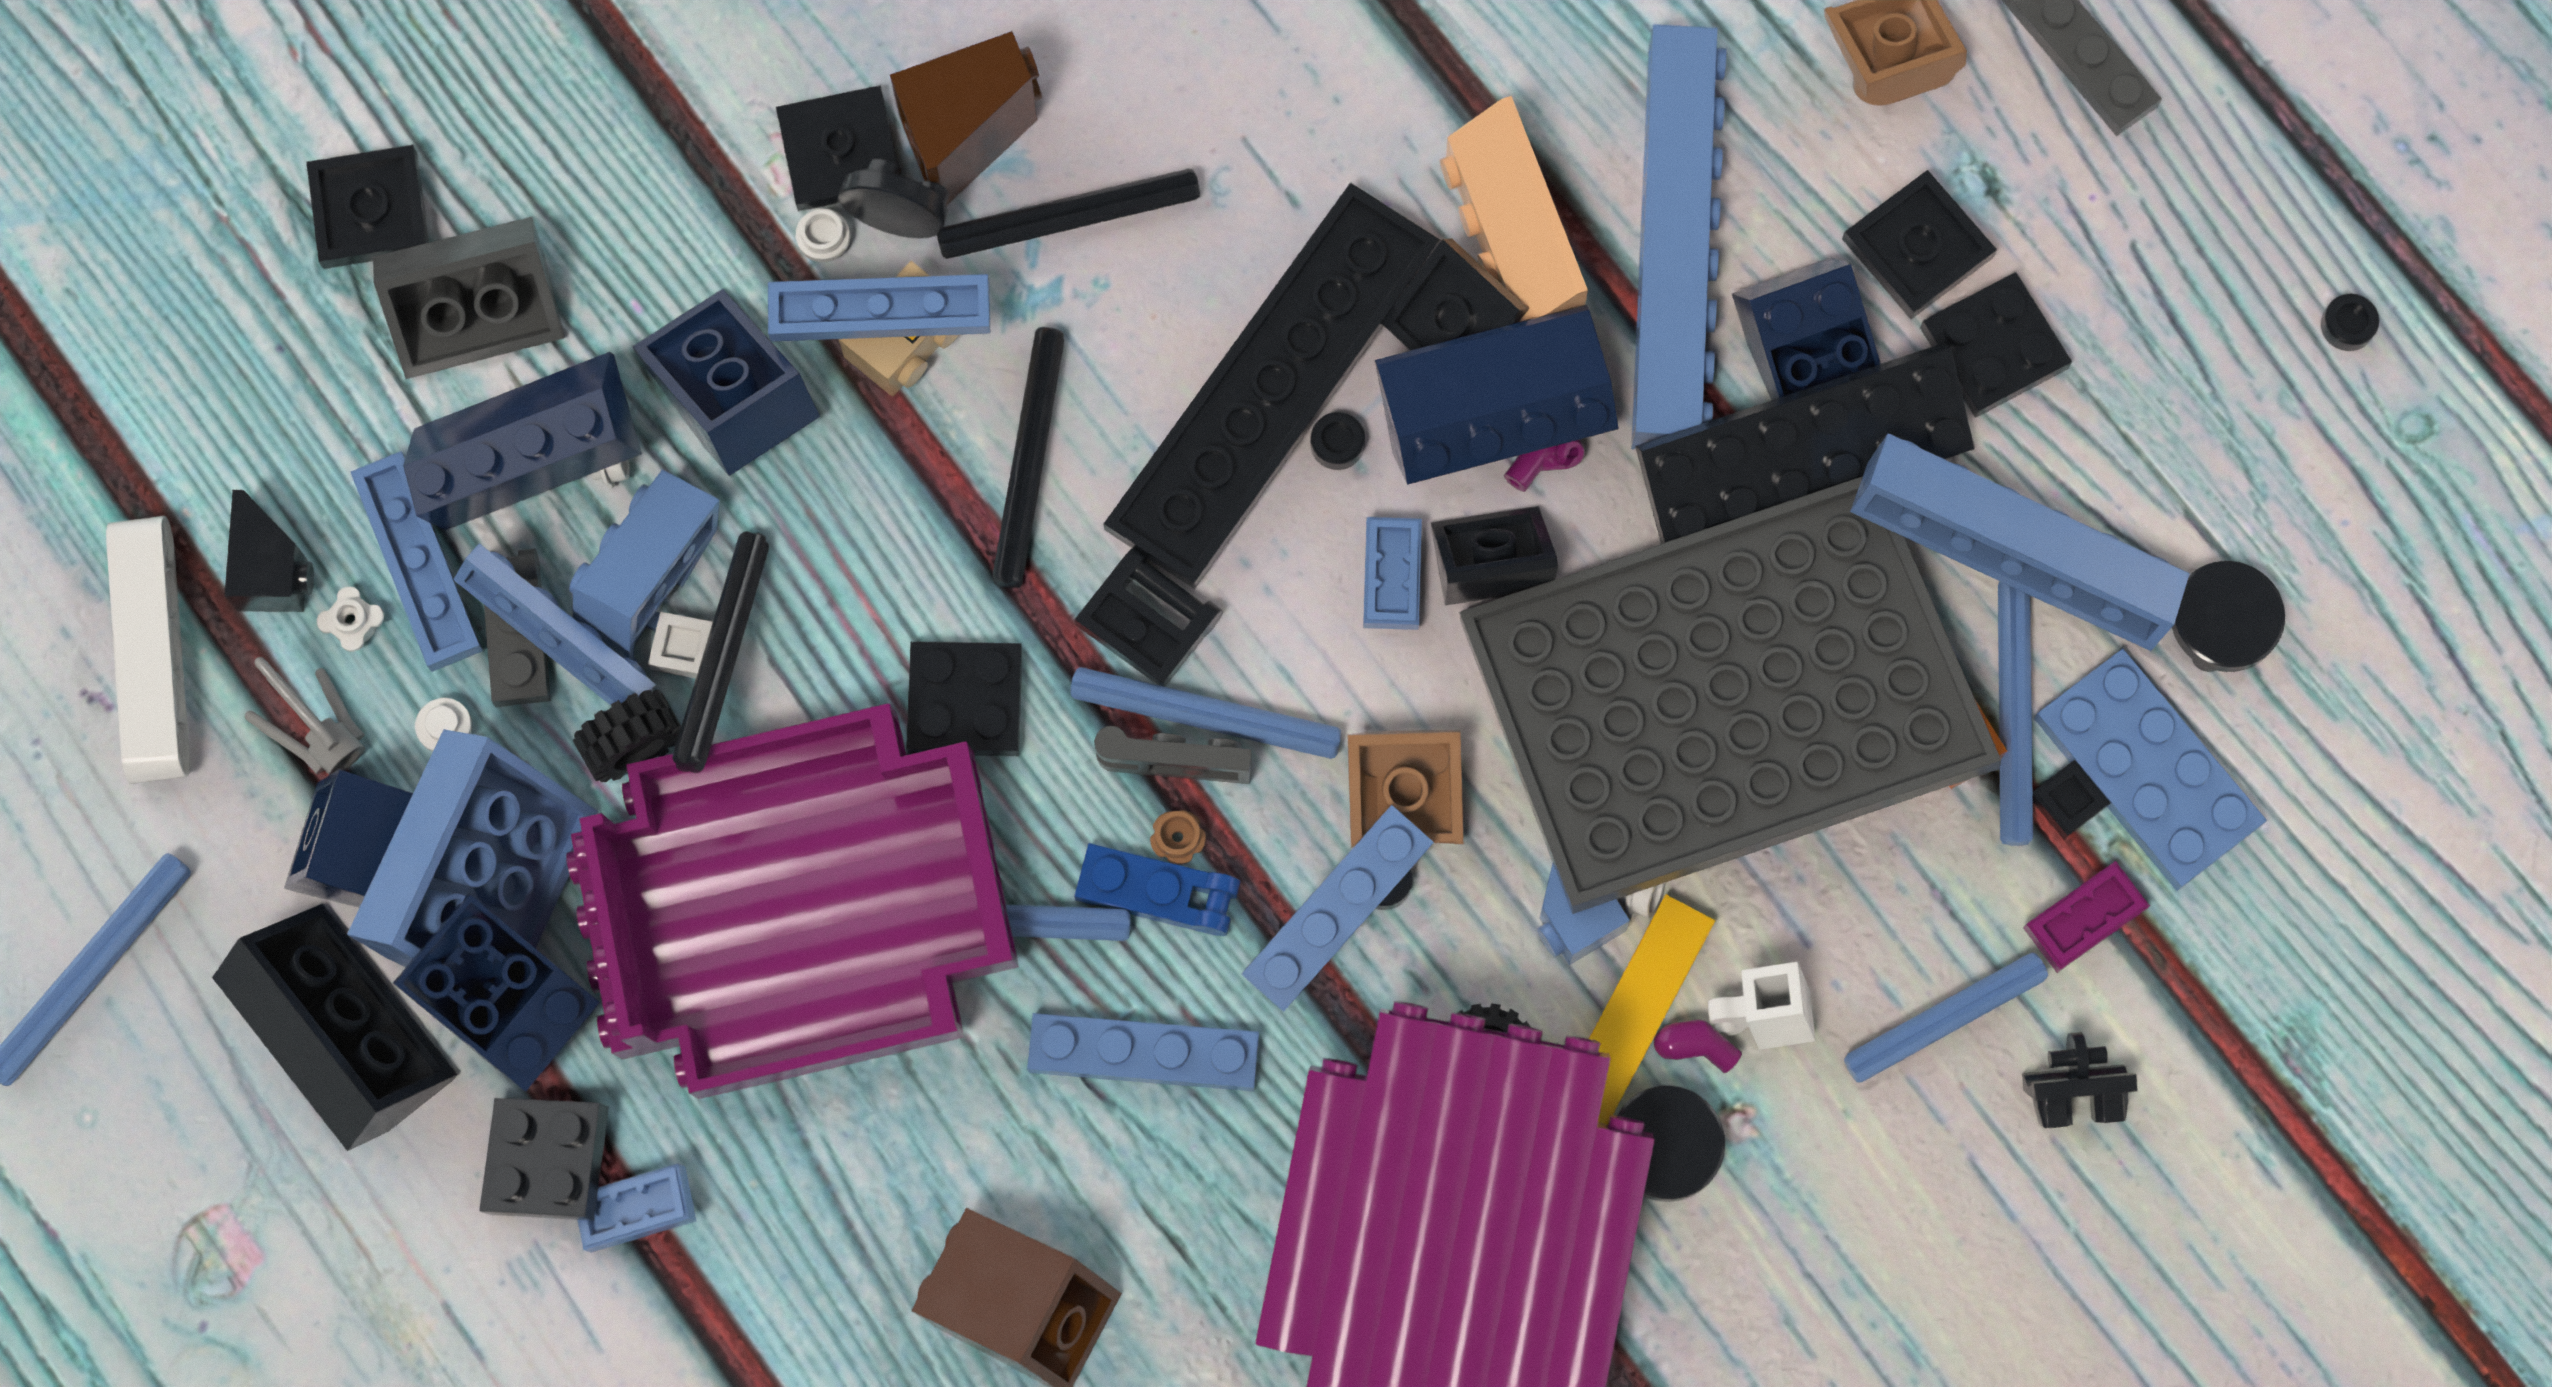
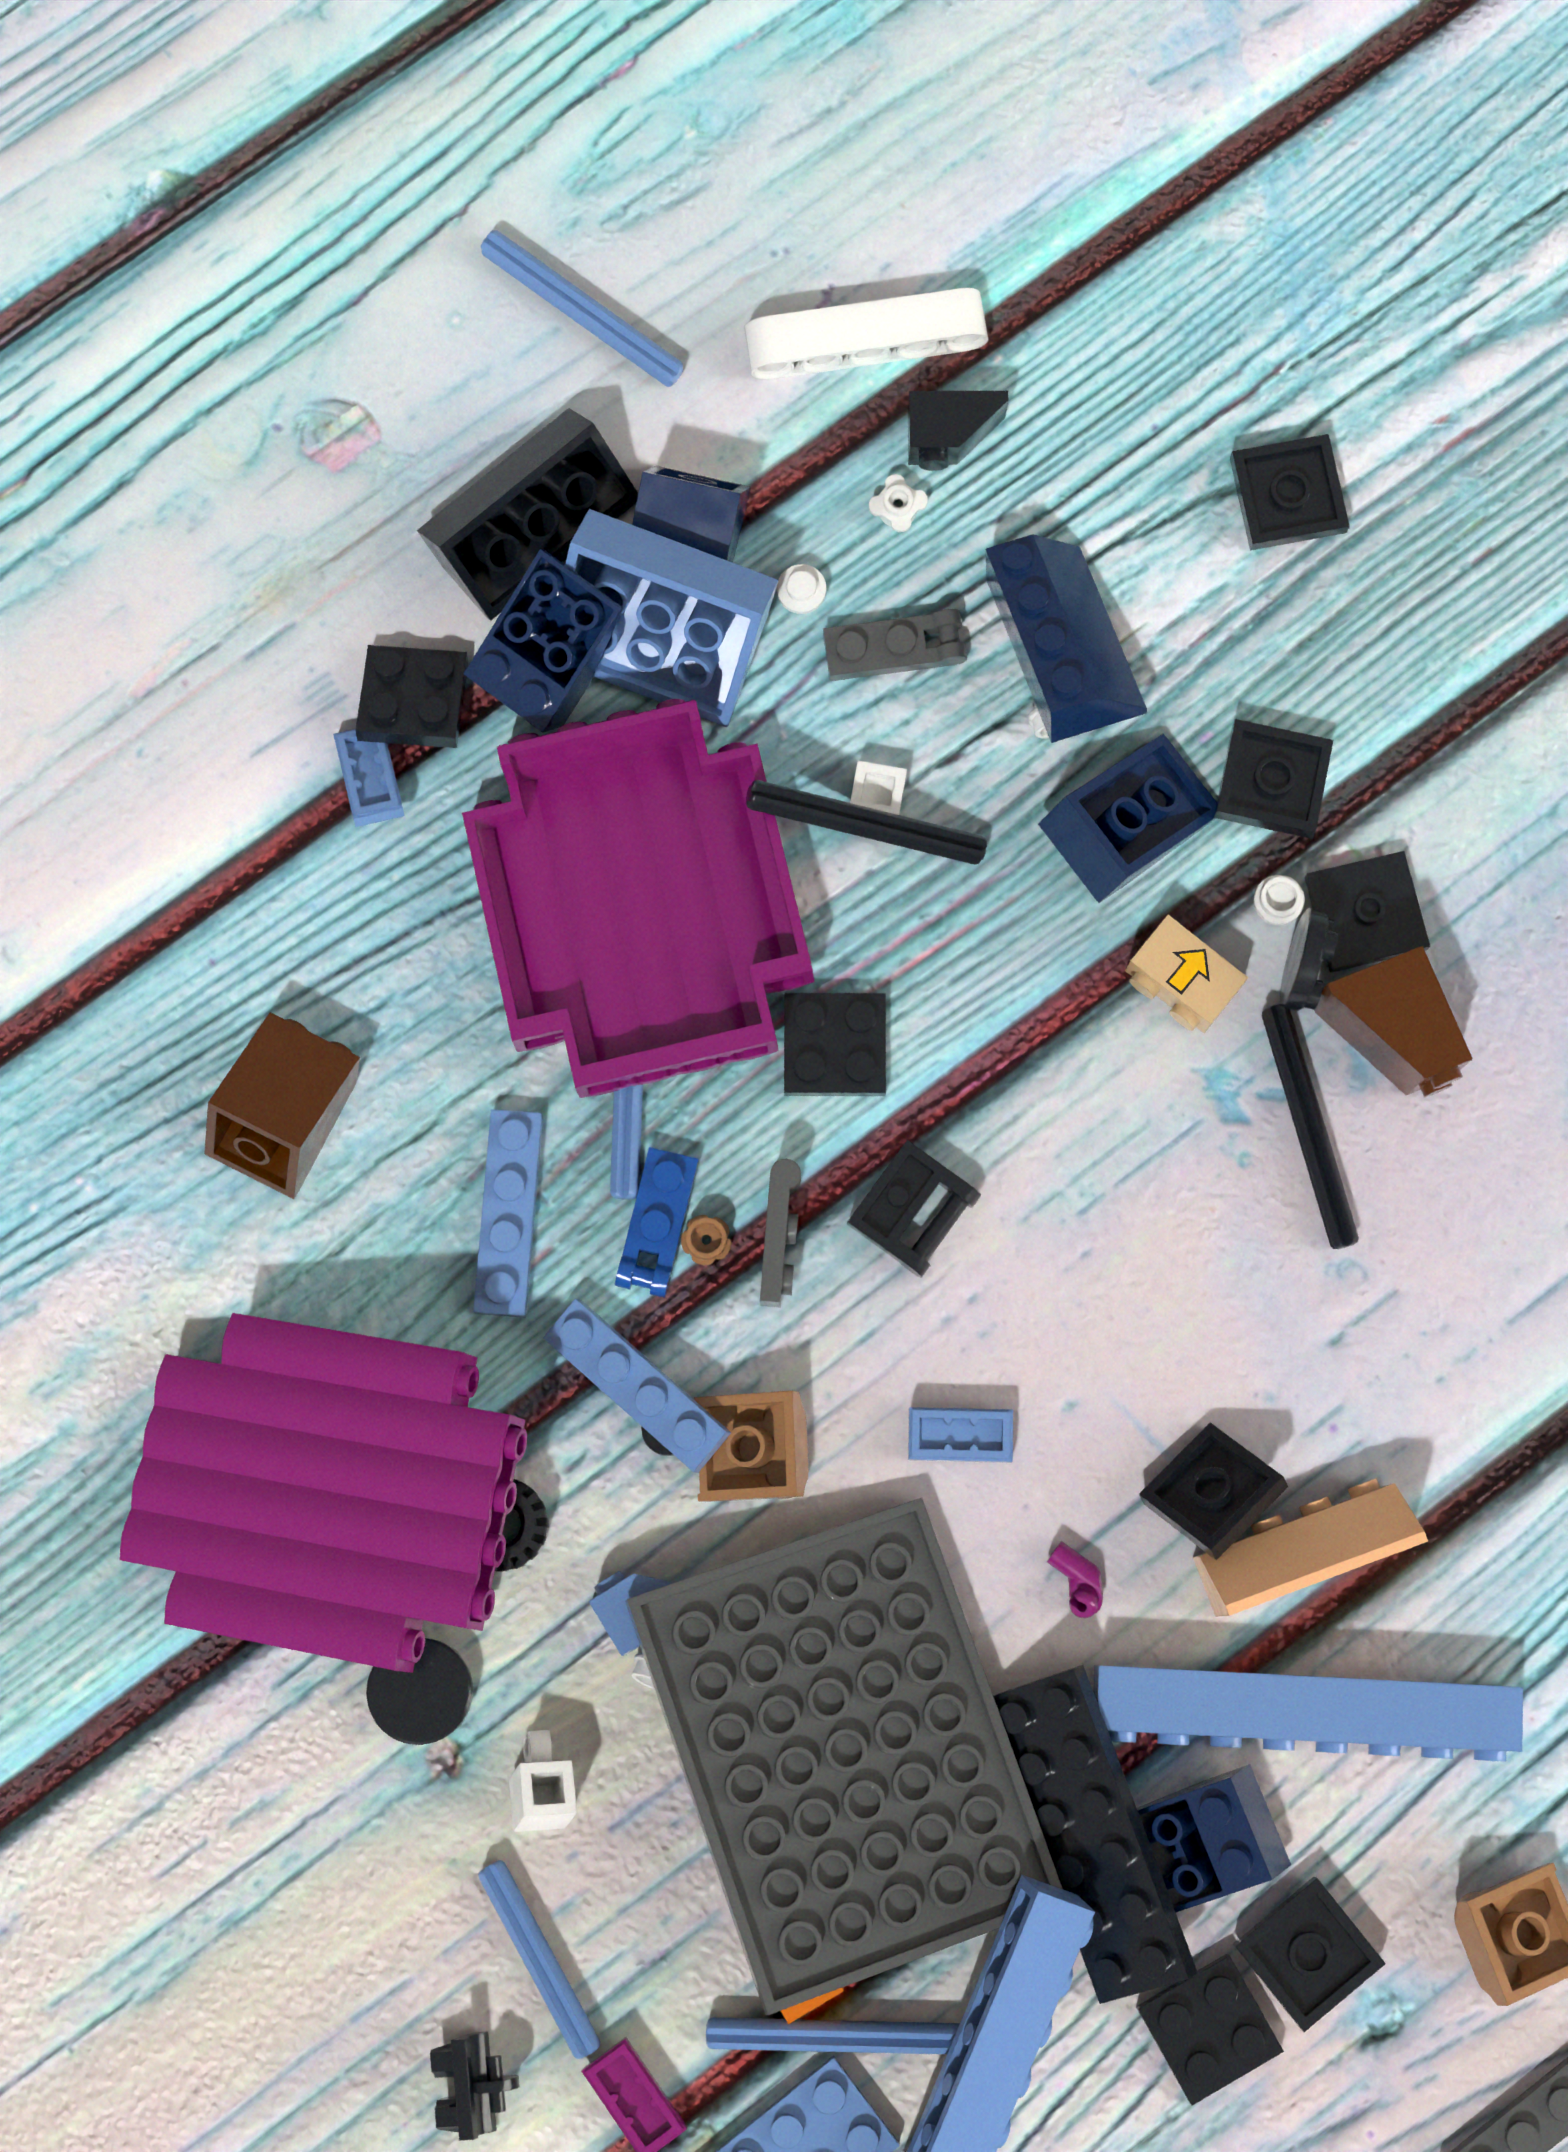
camera: 90 degrees right, 5 degrees up
(331, 743) = (781, 491): light grey plant -> none
(416, 564) = (945, 556): medium blue plate -> none
(467, 297) = (1204, 584): dark grey slope -> none
(542, 621) = (894, 660): medium blue plate -> none
(627, 734) = (787, 744): black tyre -> none
(644, 560) = (949, 749): medium blue wedge -> none
(690, 233) = (1273, 778): none -> black plate
(879, 307) = (1195, 948): medium blue plate -> none
(1028, 458) = (1067, 1095): black axle -> none
(1205, 713) = (823, 1264): medium blue axle -> none
(1270, 386) = (1146, 1321): black plate -> none
(1337, 441) = (1092, 1383): black tile -> none
(1493, 555) = (983, 1529): black slope -> none
(1496, 394) = (1131, 1531): dark blue slope -> none
(1647, 993) = (553, 1669): yellow tile -> none
(1696, 1039) = (516, 1719): magenta arm -> none
(2069, 799) = (751, 2087): black tile -> none

